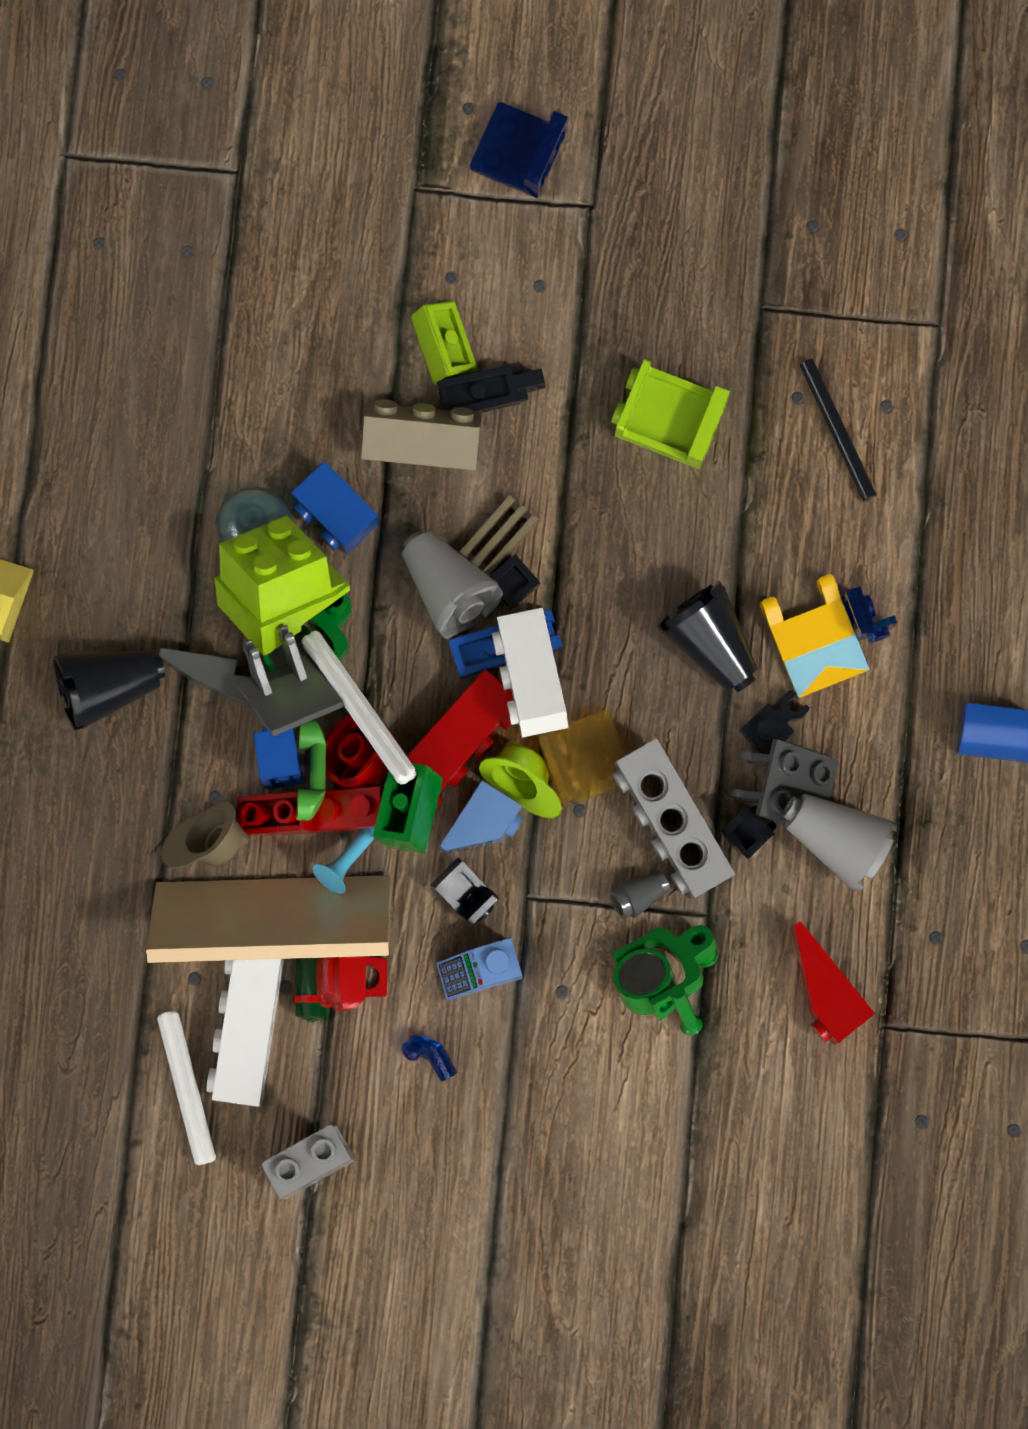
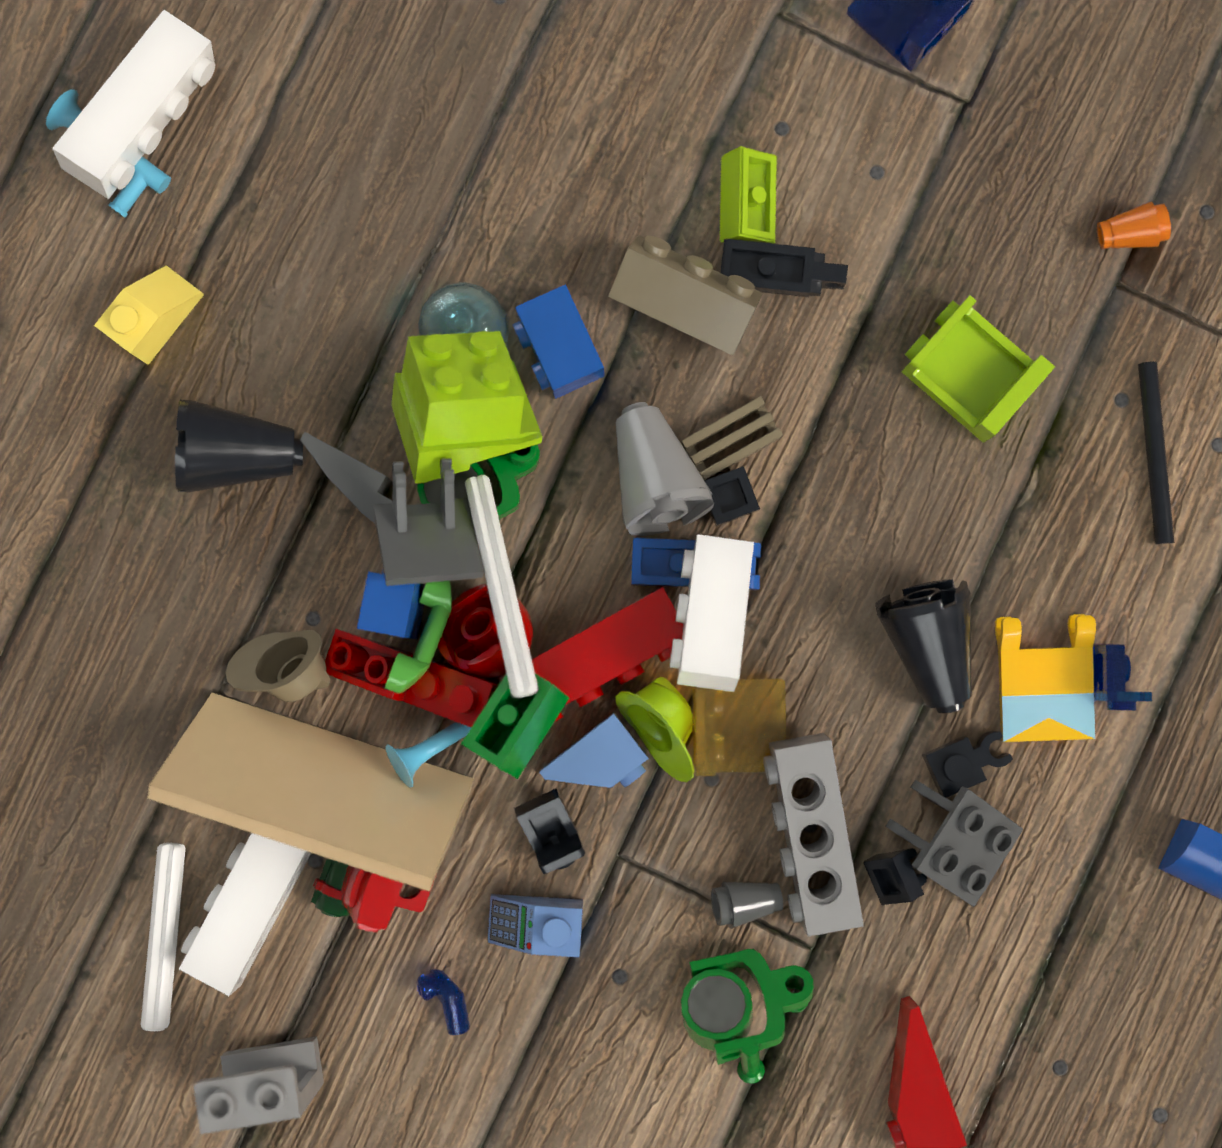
camera: 20 degrees right, 5 degrees up
(757, 260) = (1136, 228): none -> orange cone
(840, 837) = (1005, 934): light grey cone -> none

